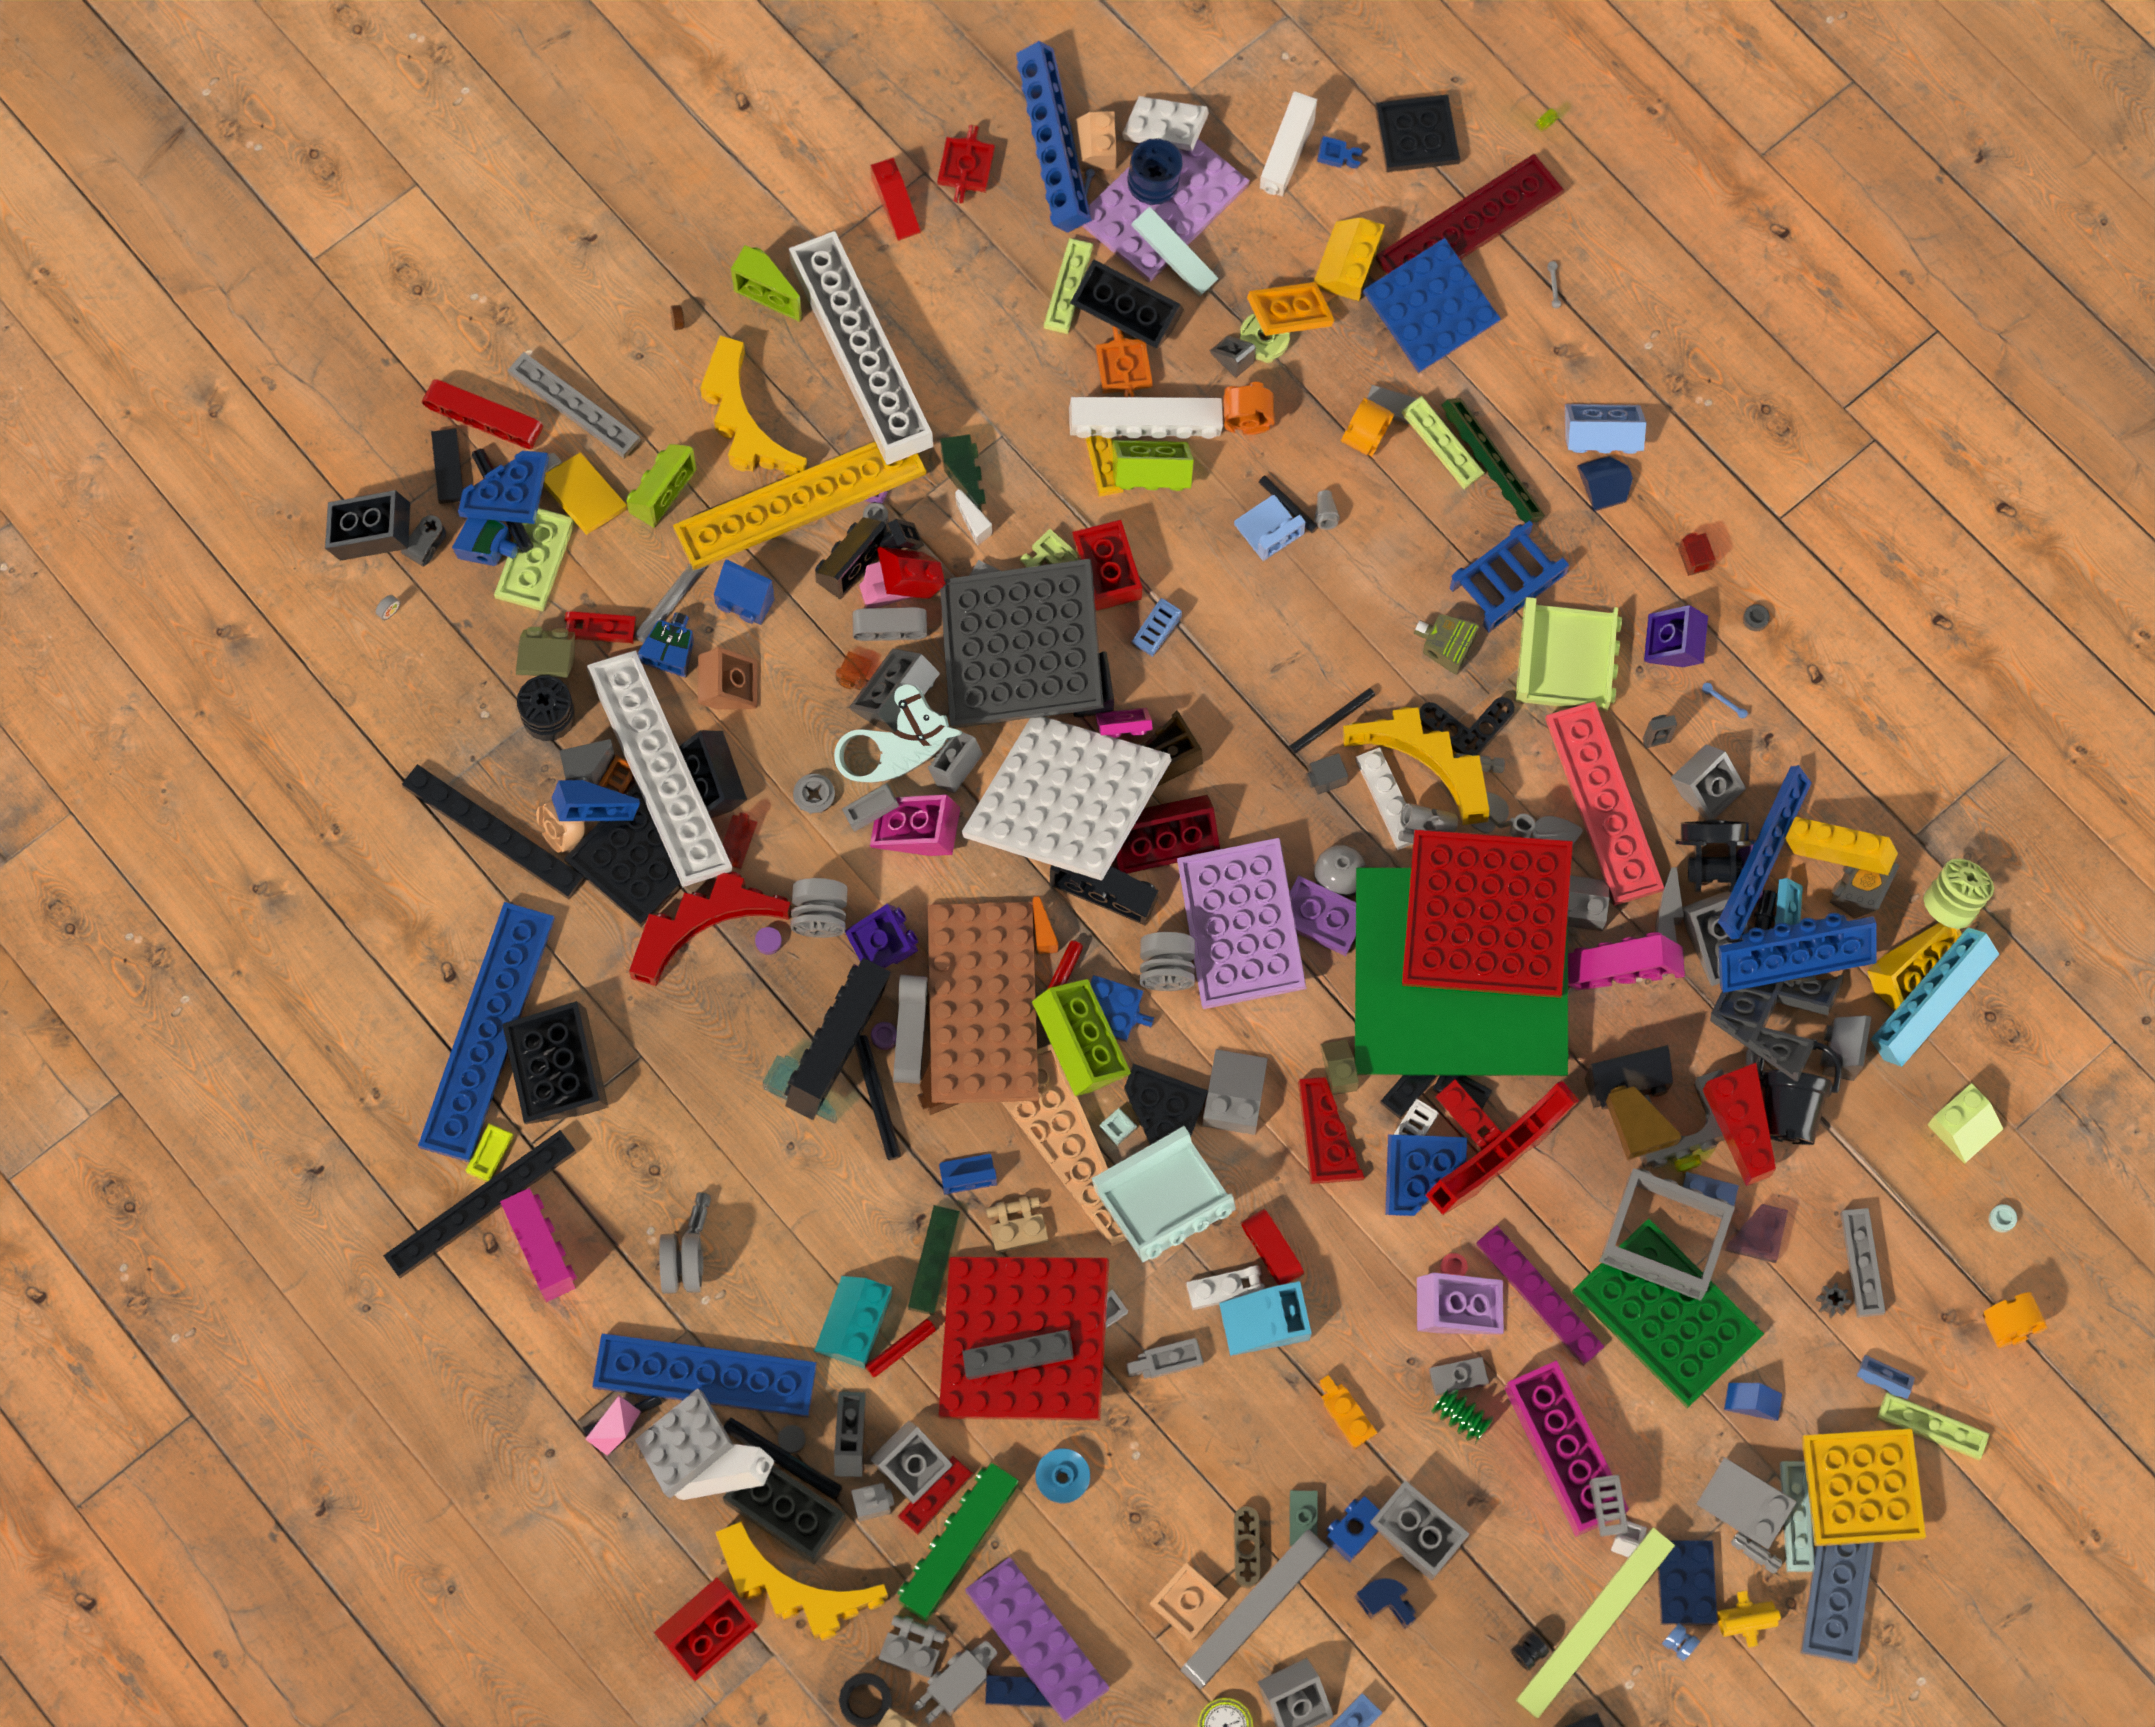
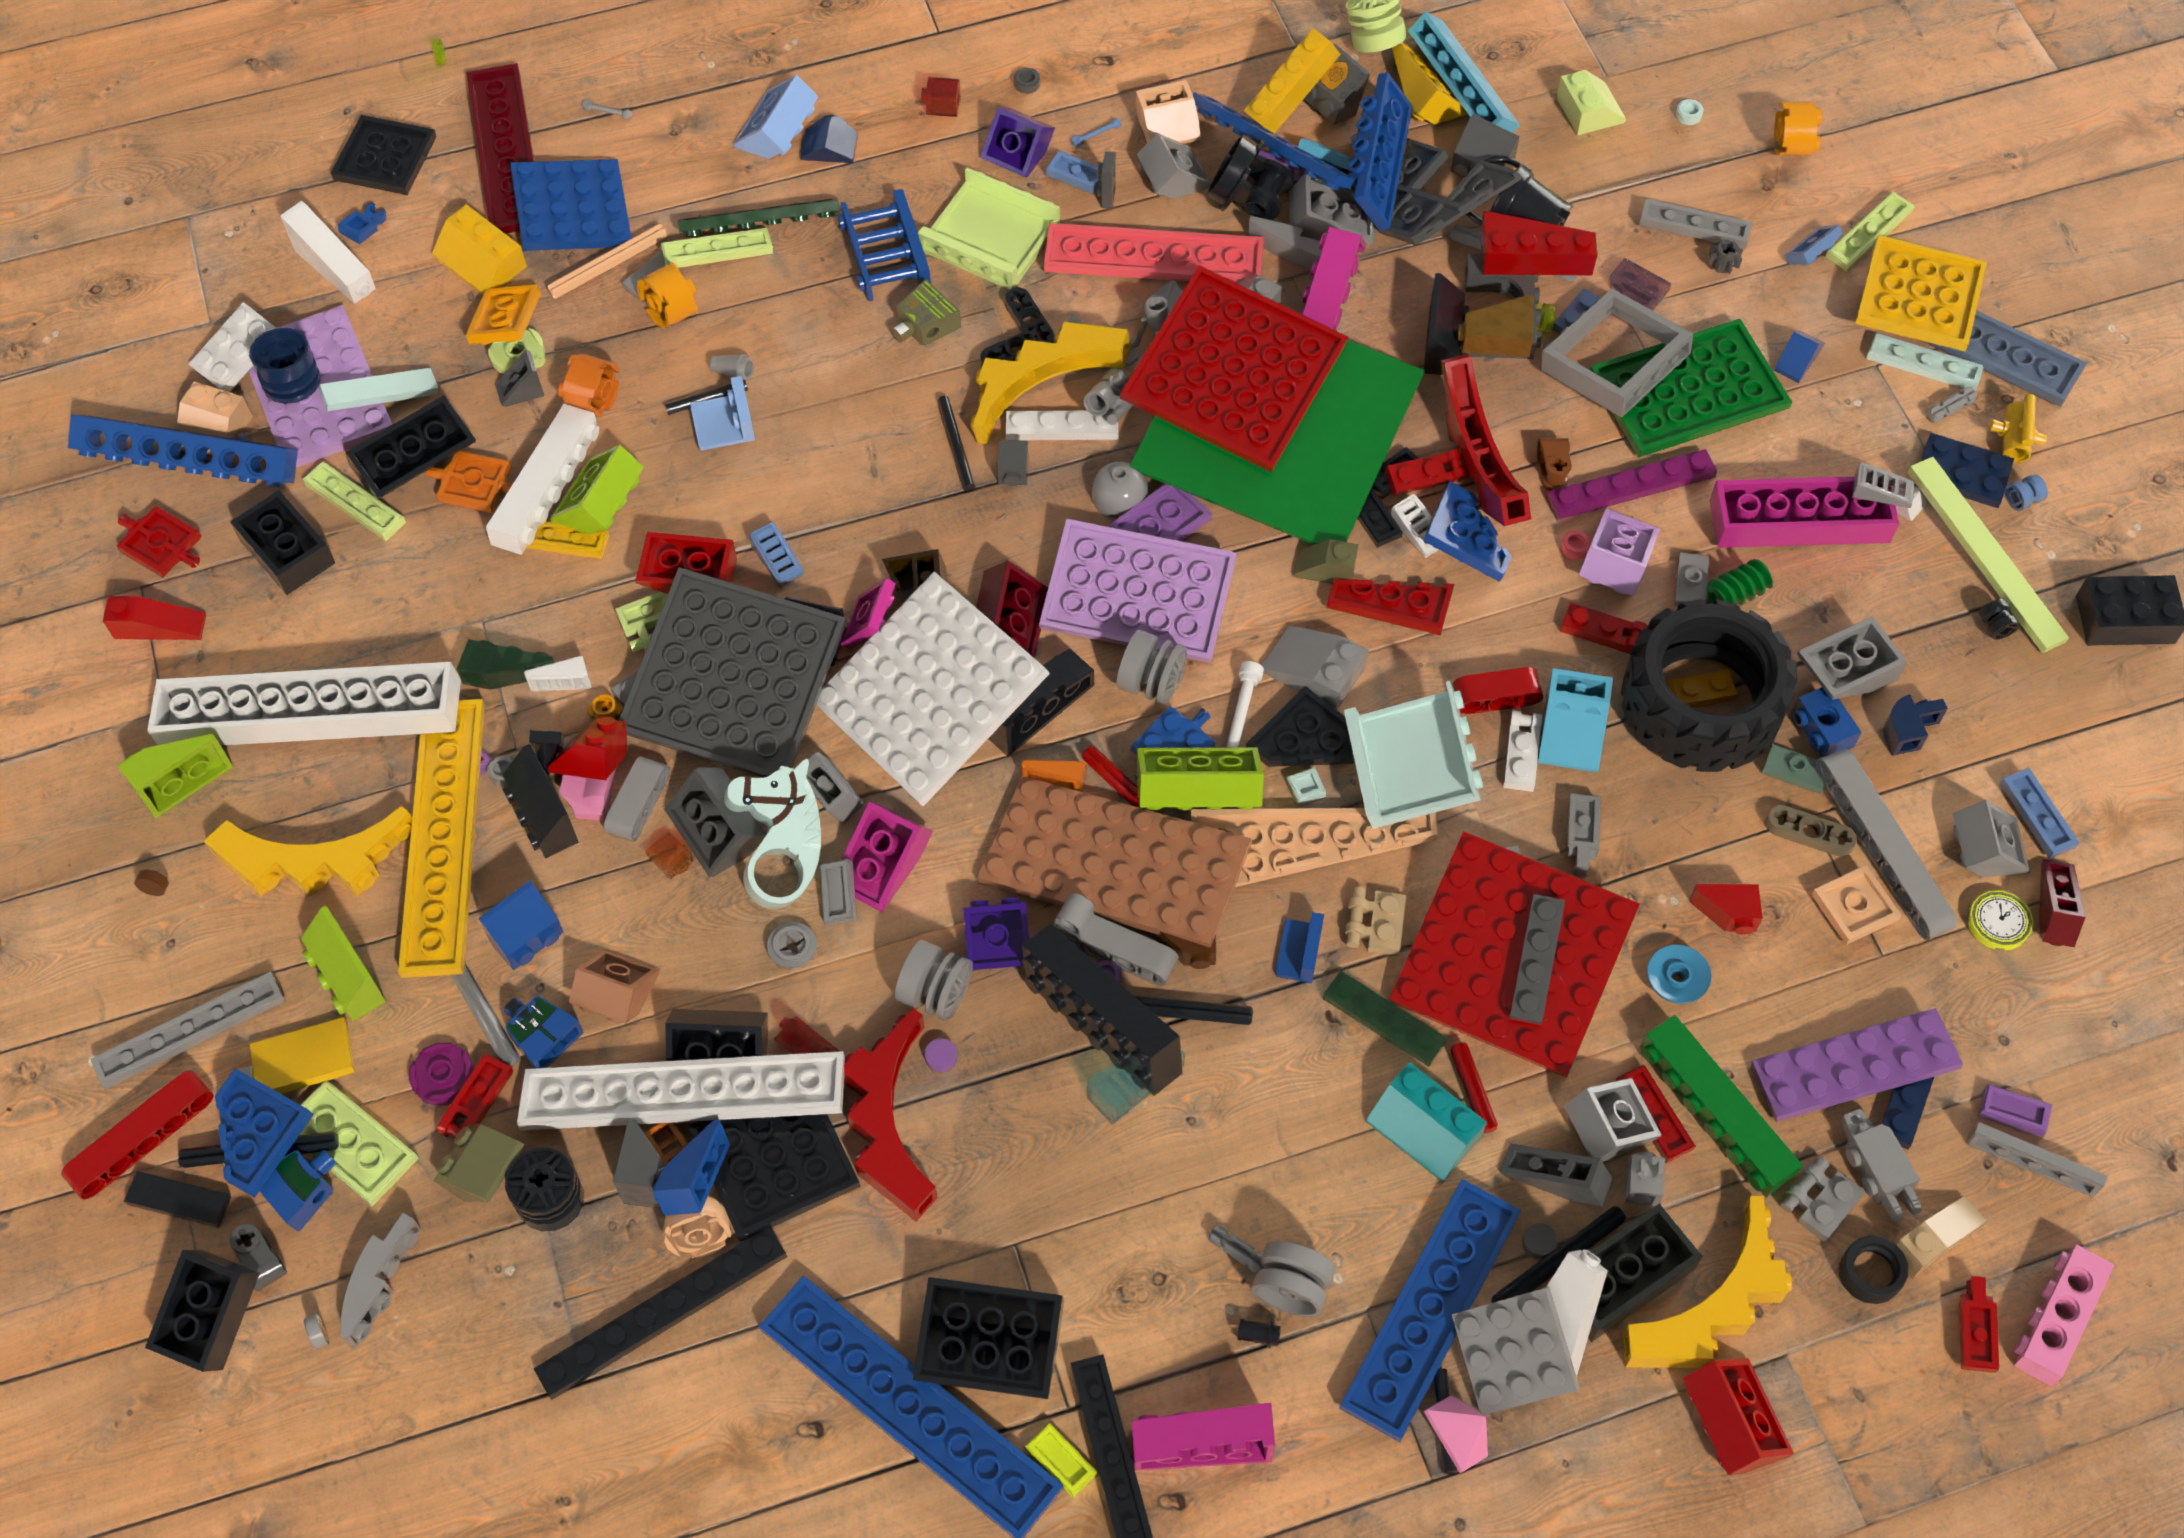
camera: 65 degrees left, 10 degrees down
(429, 625) = (367, 1288): none -> light grey slope
(612, 593) = (440, 1073): none -> magenta tile
(637, 1258) = (1259, 1332): none -> black pin
(959, 557) = (602, 702): none -> light orange plate
(999, 254) = (282, 542): none -> black brick
(1143, 1501) = (1730, 905): none -> red slope
(1199, 1044) = (1250, 675): none -> white piece
(1349, 1358) = (1722, 635): none -> black tyre
(1376, 1316) = (1601, 628): none -> red plate
(1391, 362) = (607, 261): none -> light nougat axle
(1534, 1218) = (1554, 462): none -> dark orange piece
(1666, 696) = (1073, 172): none -> medium blue plate
(1746, 1503) = (1907, 388): light grey slope -> none
(1763, 754) = (1168, 111): none -> light nougat slope

